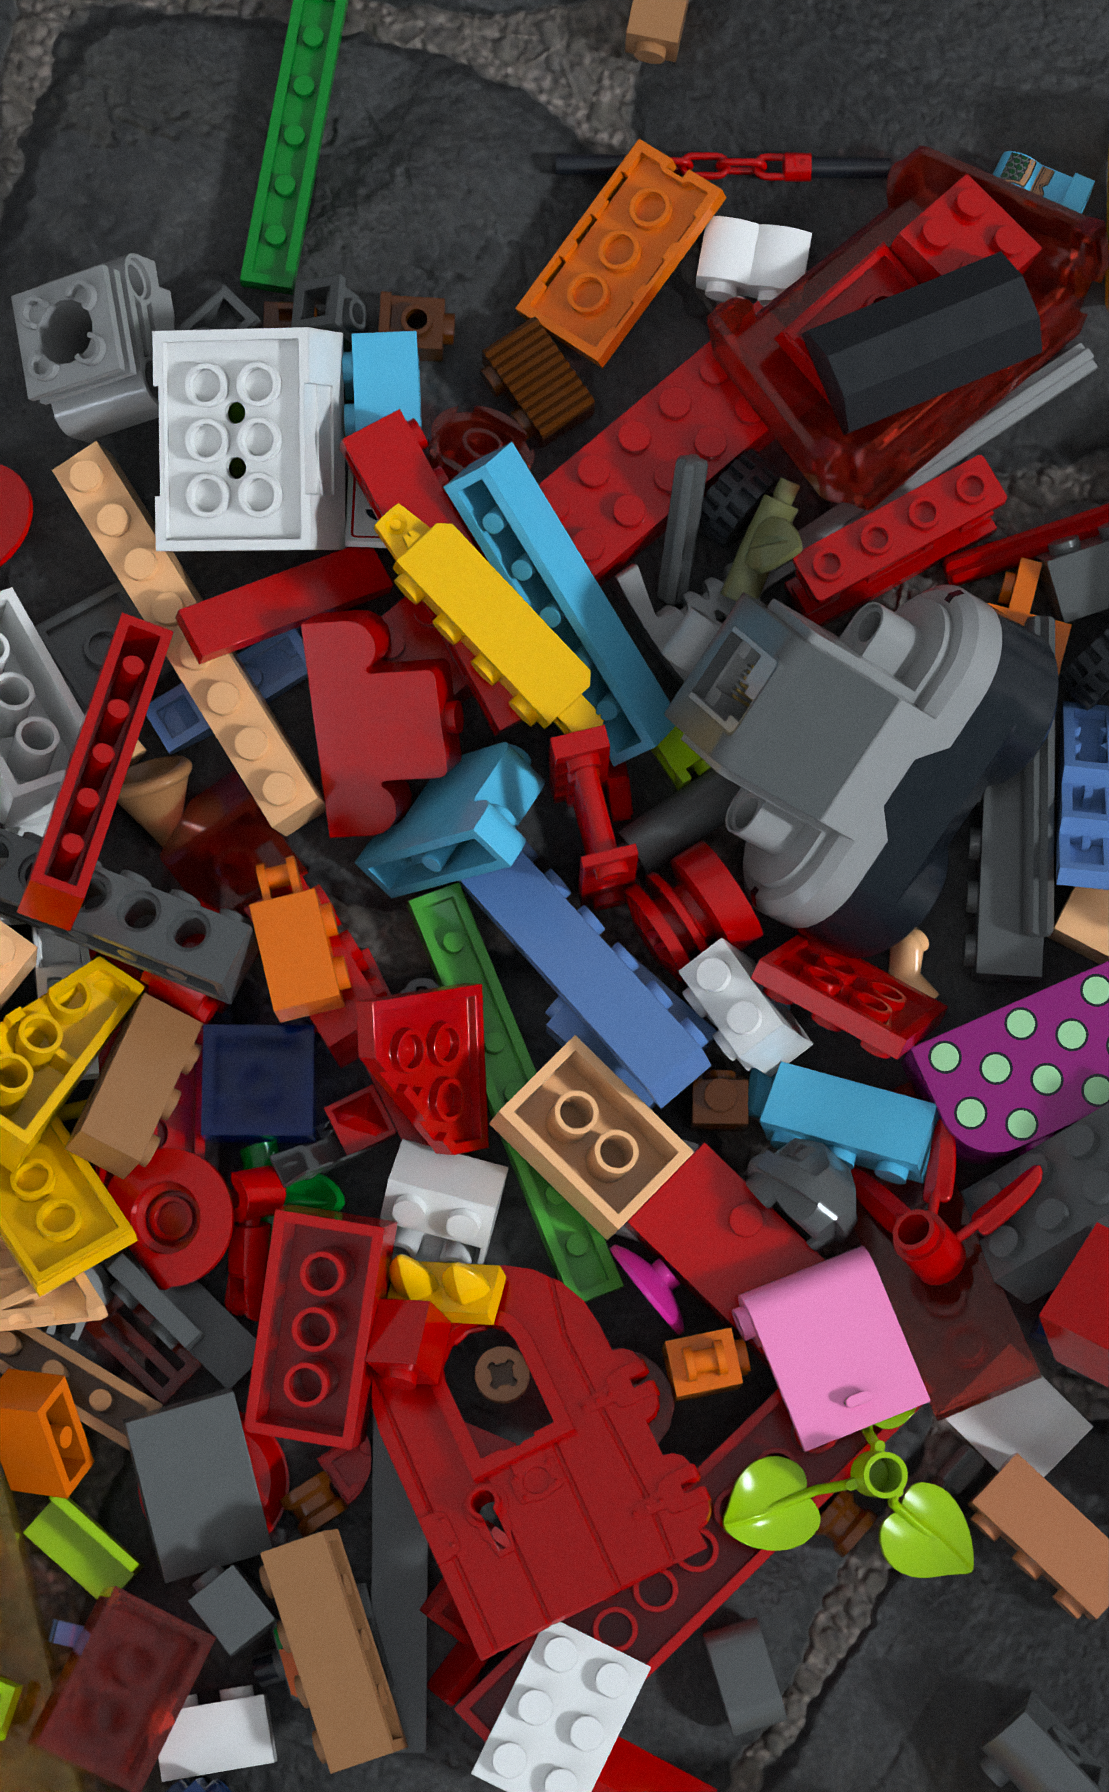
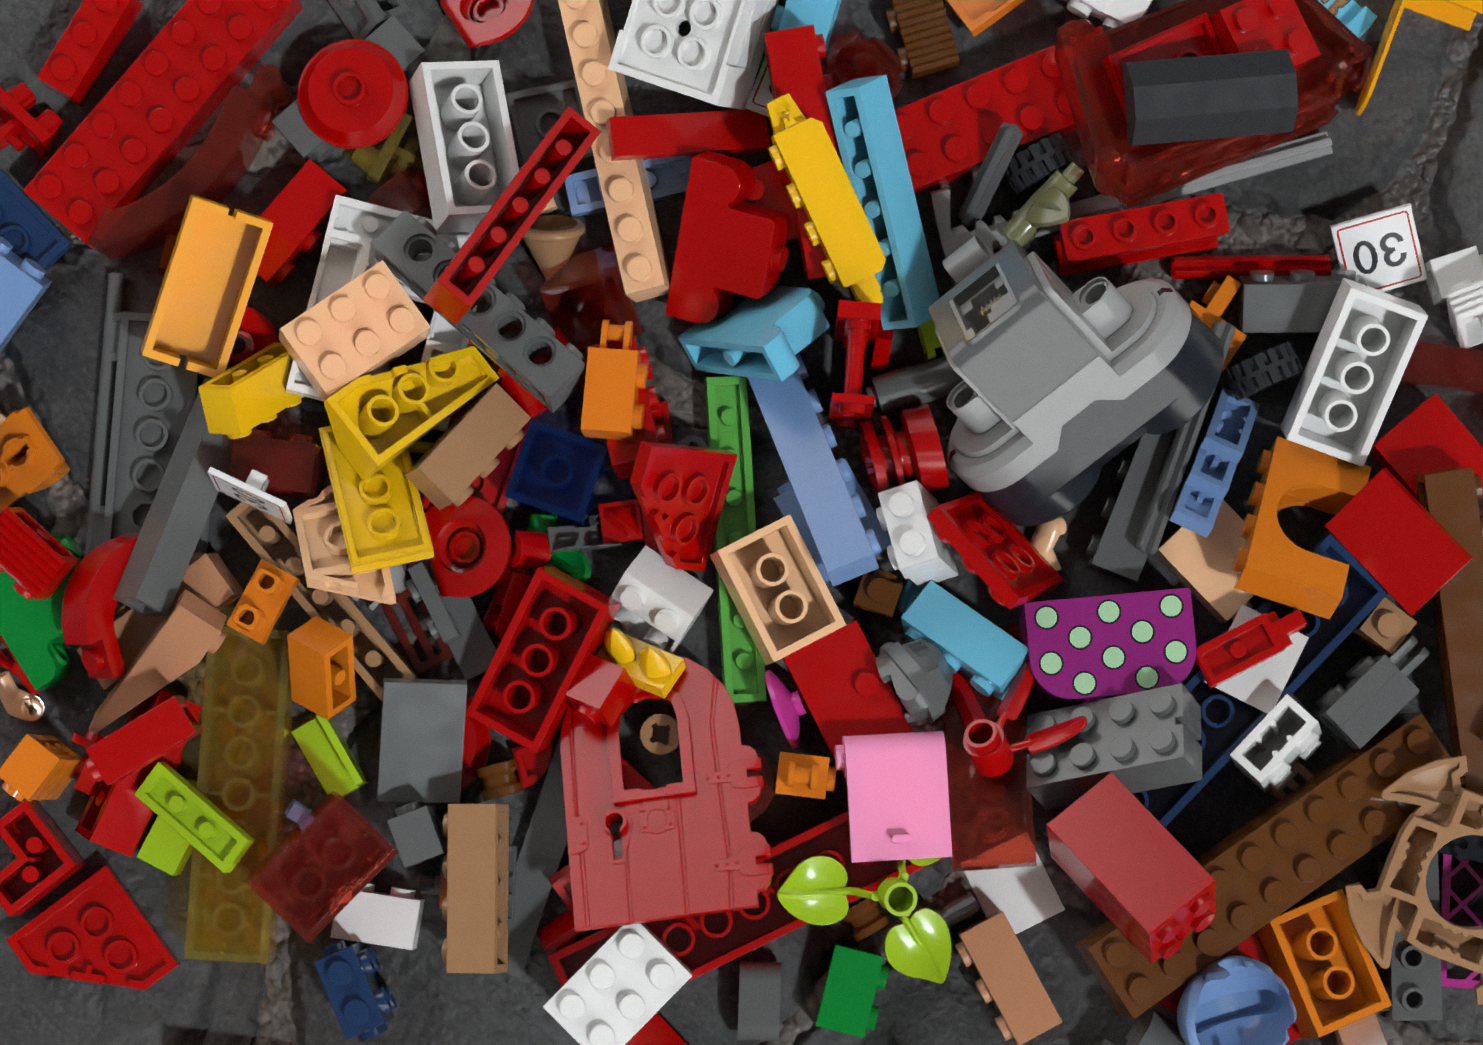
camera: 25 degrees right, 5 degrees up
(857, 1623) = (851, 991): none -> green brick

